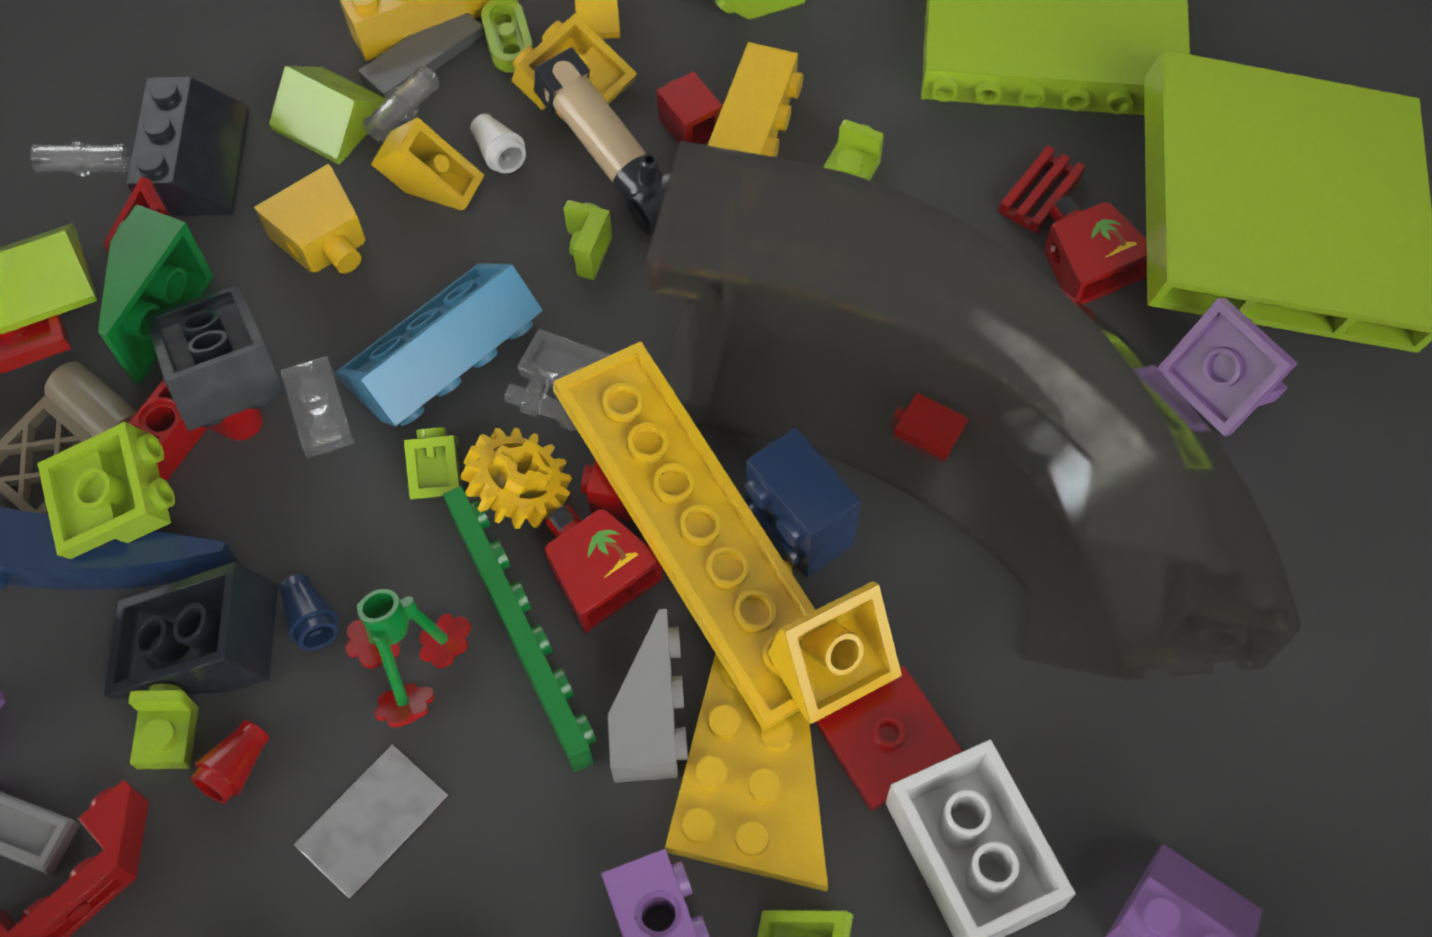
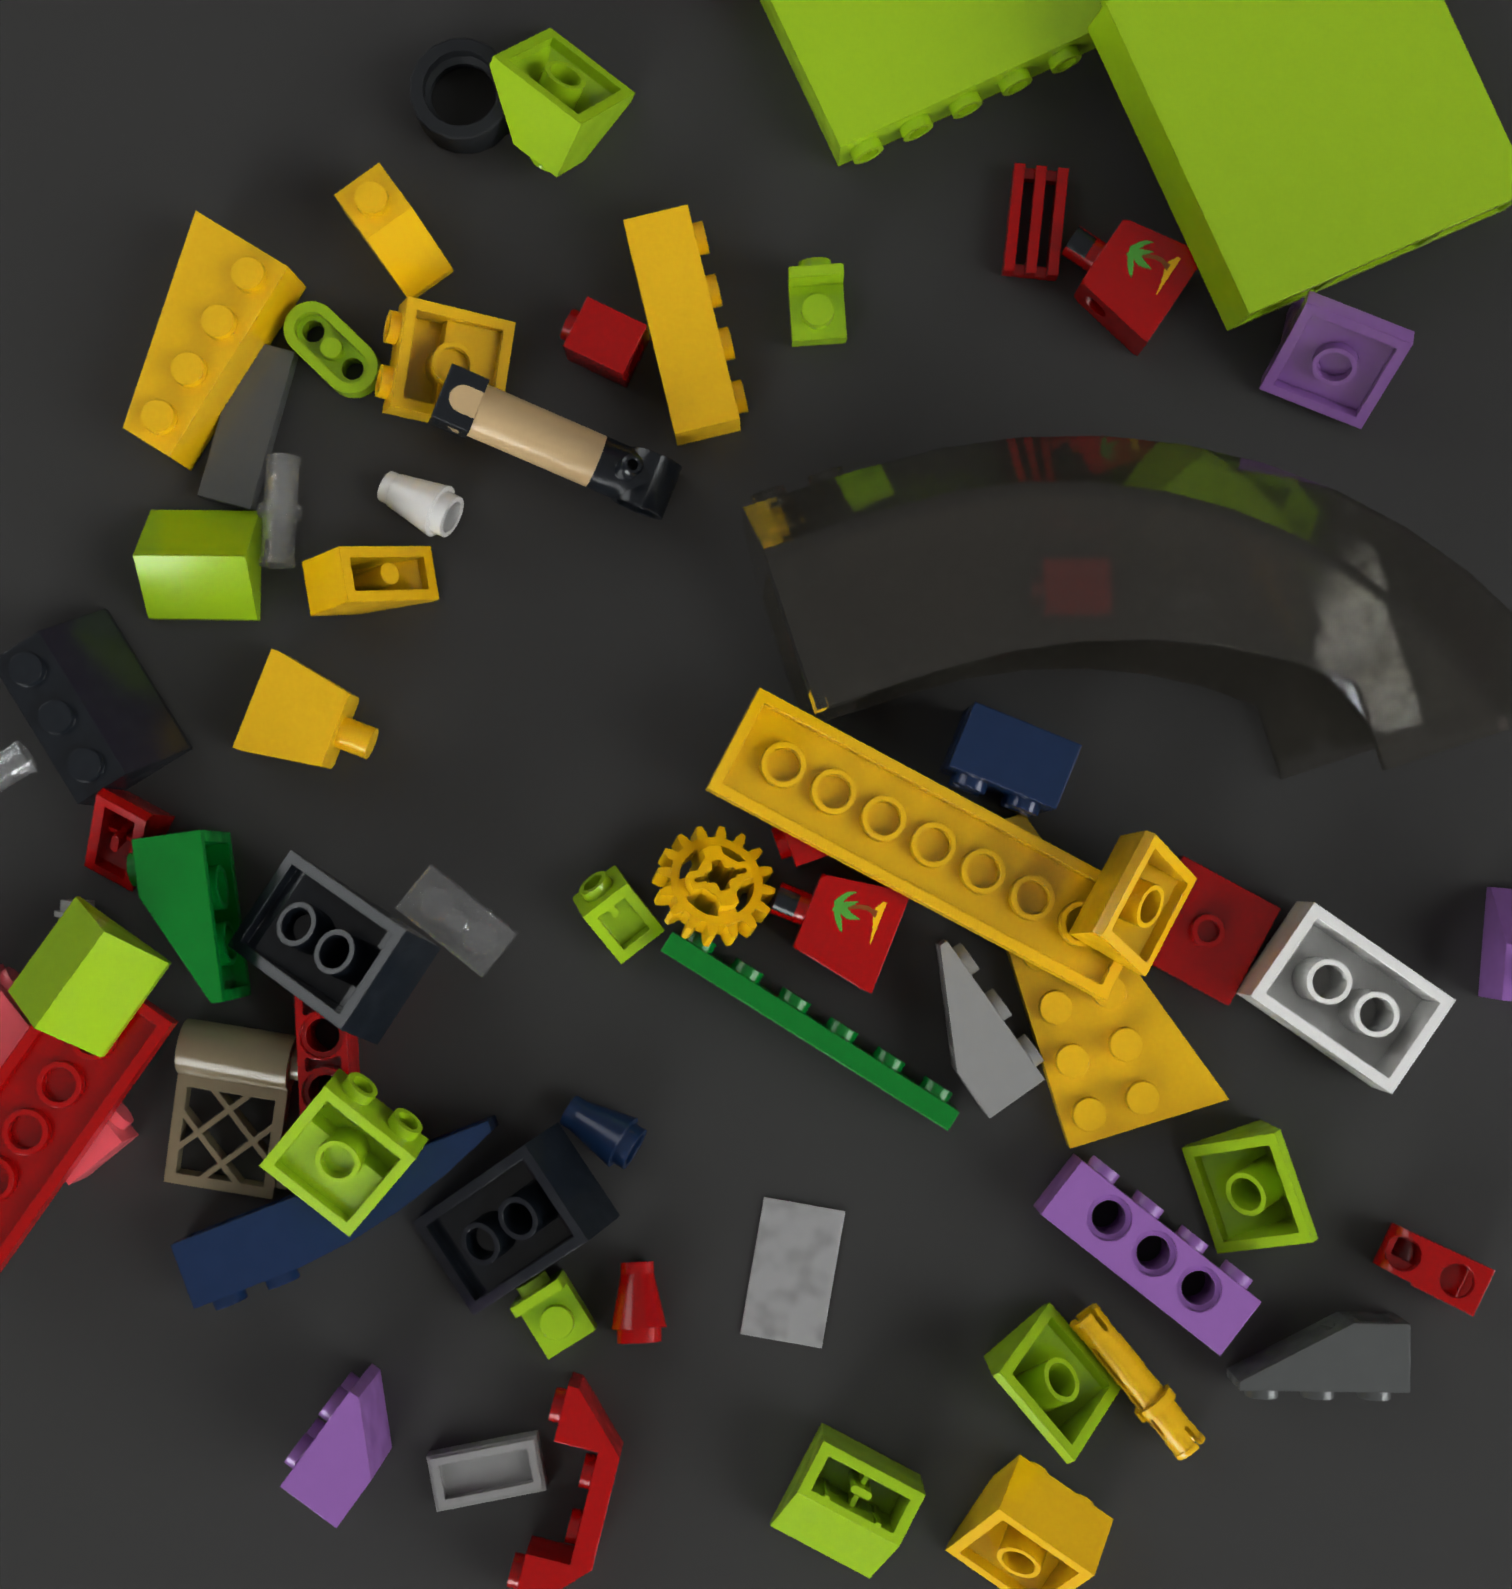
camera: 30 degrees left, 25 degrees up
(376, 640) = (705, 1114): plant -> none
(441, 343) = (528, 778): dark azure slope -> none
(545, 361) = (675, 731): clear plate -> none
(590, 236) = (606, 575): lime bracket -> none

